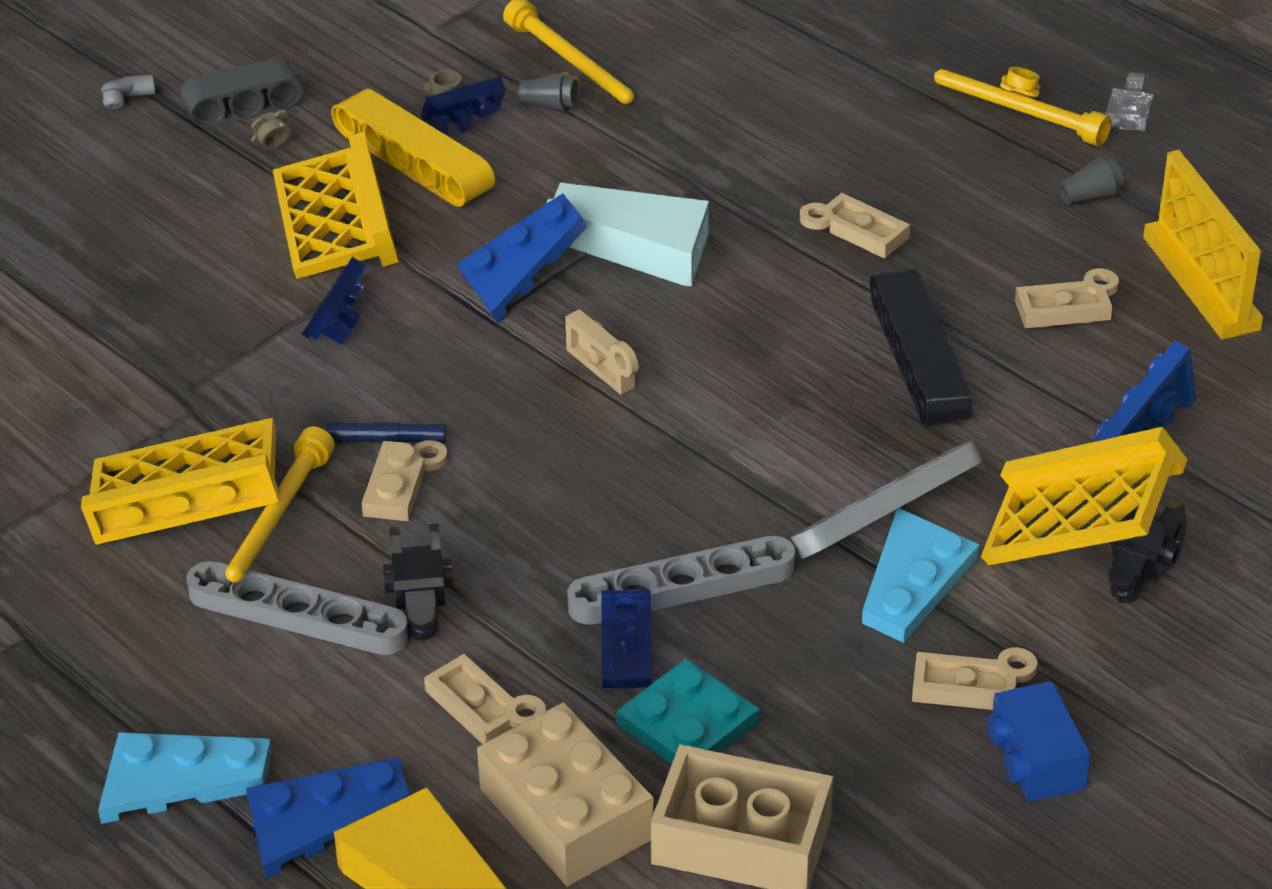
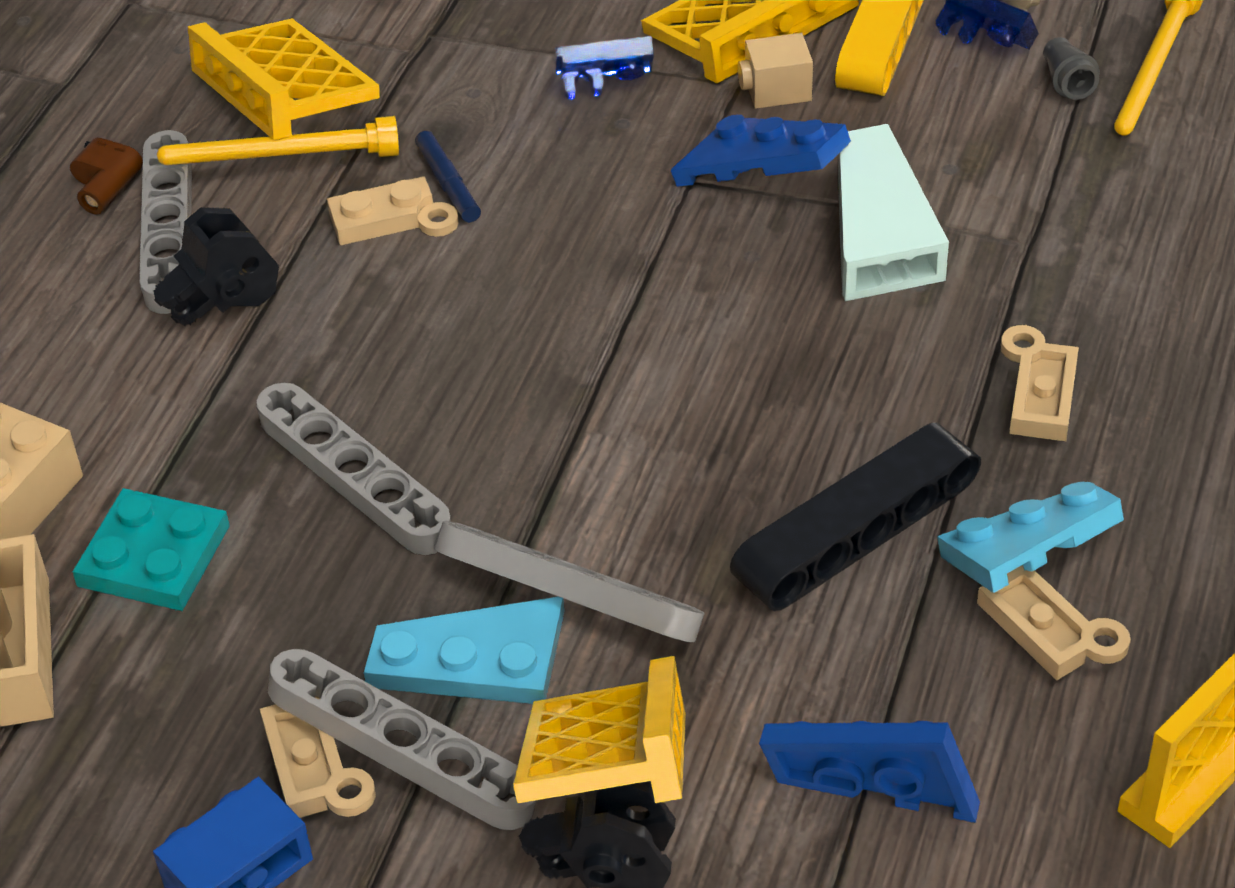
camera: 65 degrees right, 5 degrees up
(197, 625) = (105, 170): none -> reddish brown piece
(430, 219) = (777, 70): none -> tan brick
(478, 700) = (90, 386): tan hinge -> none
(601, 352) = (650, 277): tan hinge -> none
(626, 639) = (219, 452): clear blue plate -> none
(986, 622) = (387, 714): none -> light grey beam
(992, 280) = (1022, 536): none -> medium azure wing

